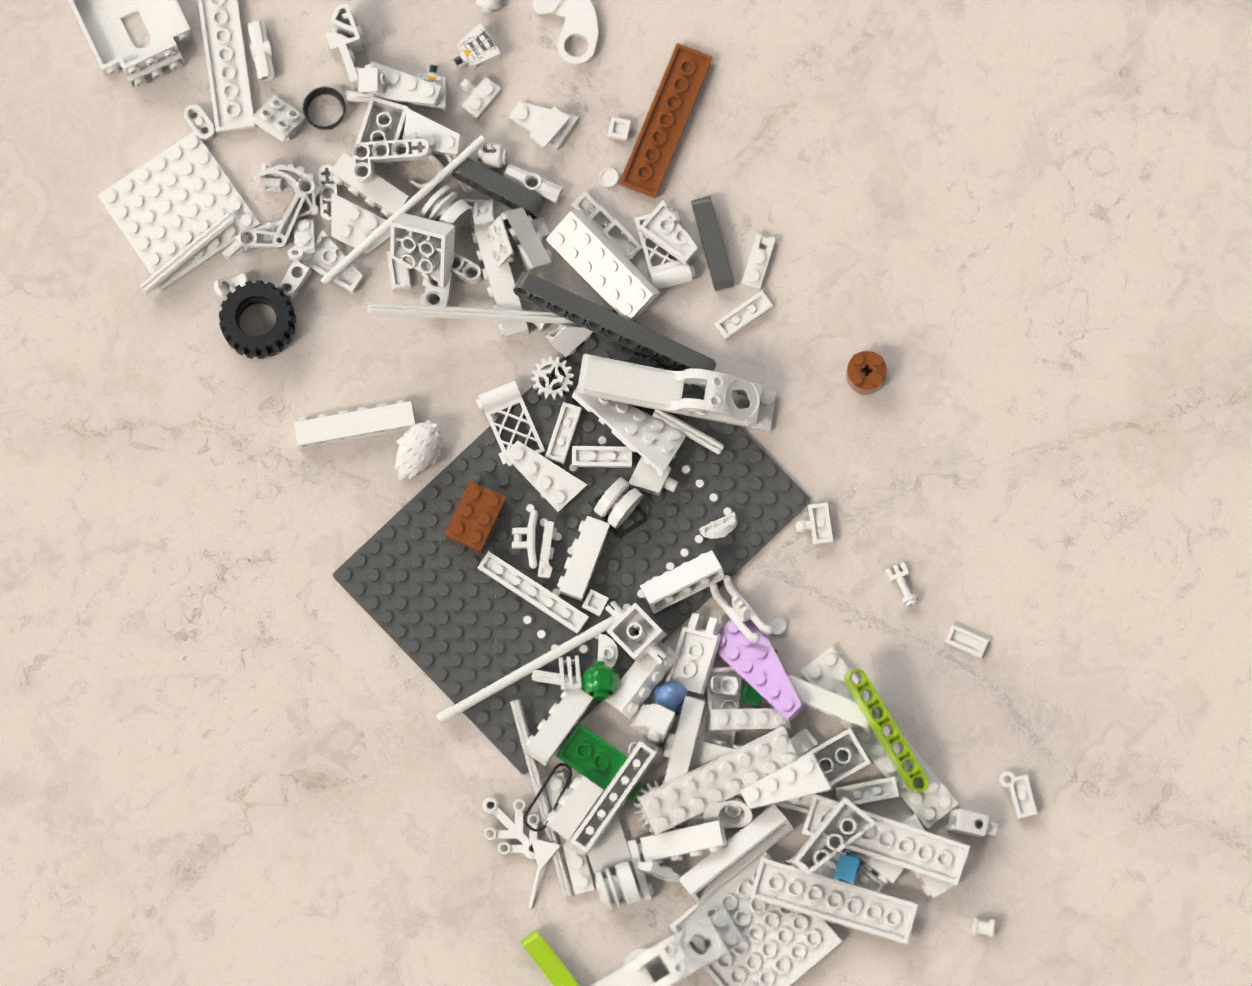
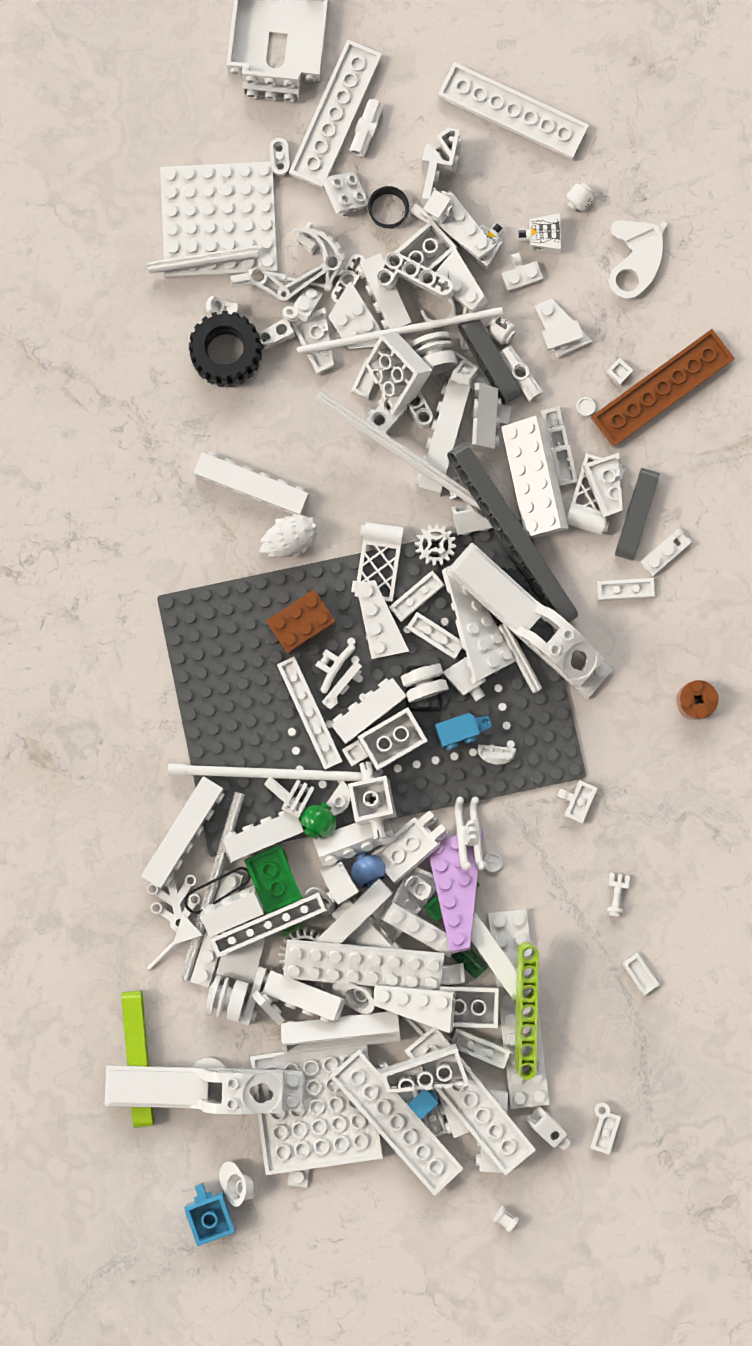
camera: 30 degrees right, 5 degrees up
(486, 766) = (183, 832): none -> white brick
(499, 241) = (462, 400): white hinge -> none
(621, 569) = (392, 739): none -> white brick
(675, 523) = (461, 729): none -> dark azure hinge
(682, 581) = (437, 780): white brick -> none
(813, 721) = (471, 961): none -> clear green plate

